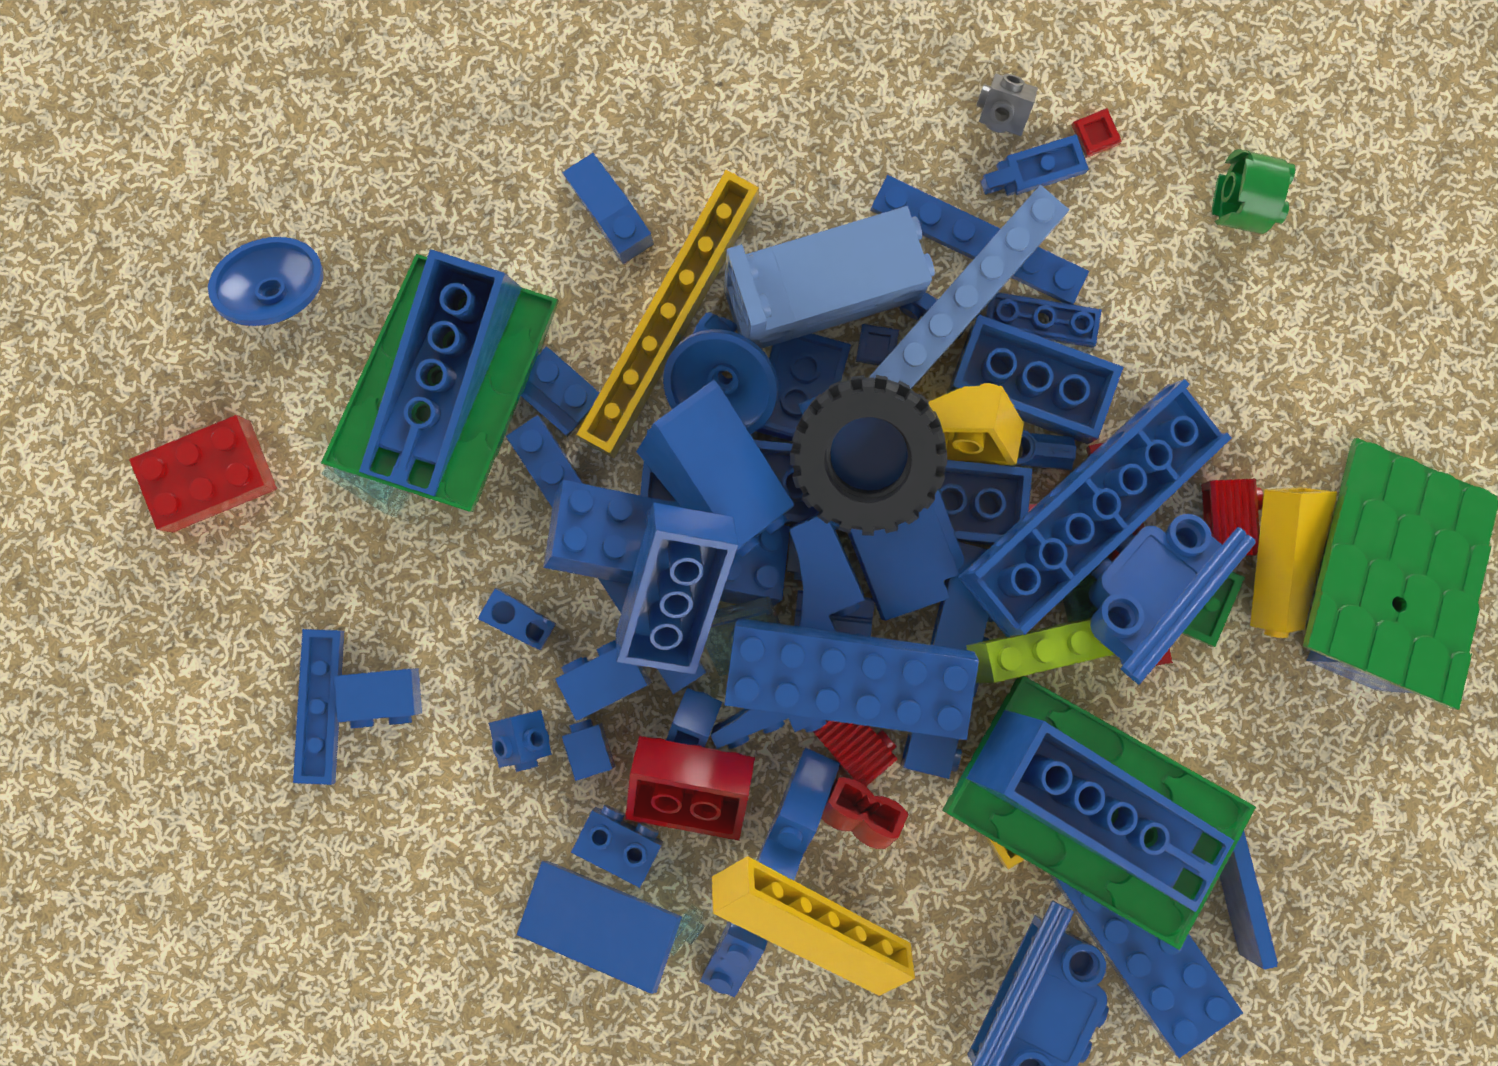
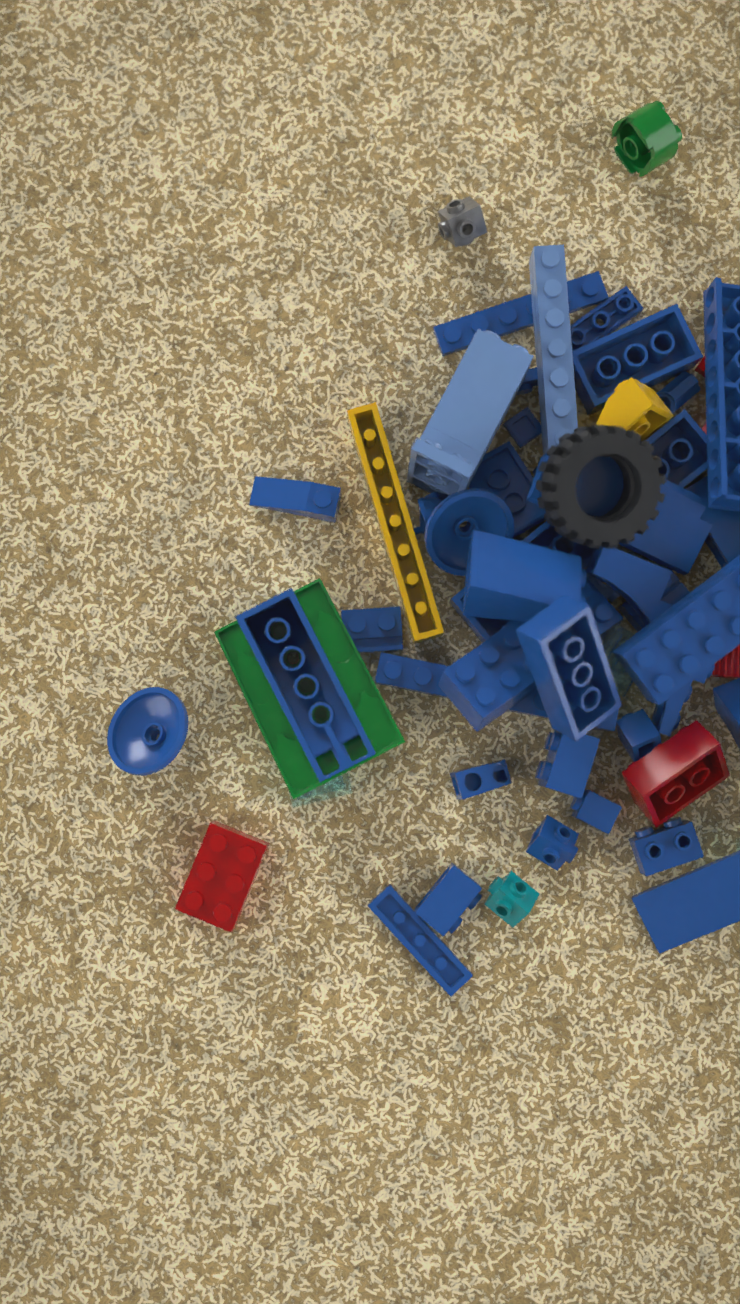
camera: 45 degrees left, 0 degrees up
(433, 750) = (511, 898): none -> teal brick
(1037, 167) = (512, 241): blue hinge -> none
(1096, 132) = (524, 190): red tile -> none

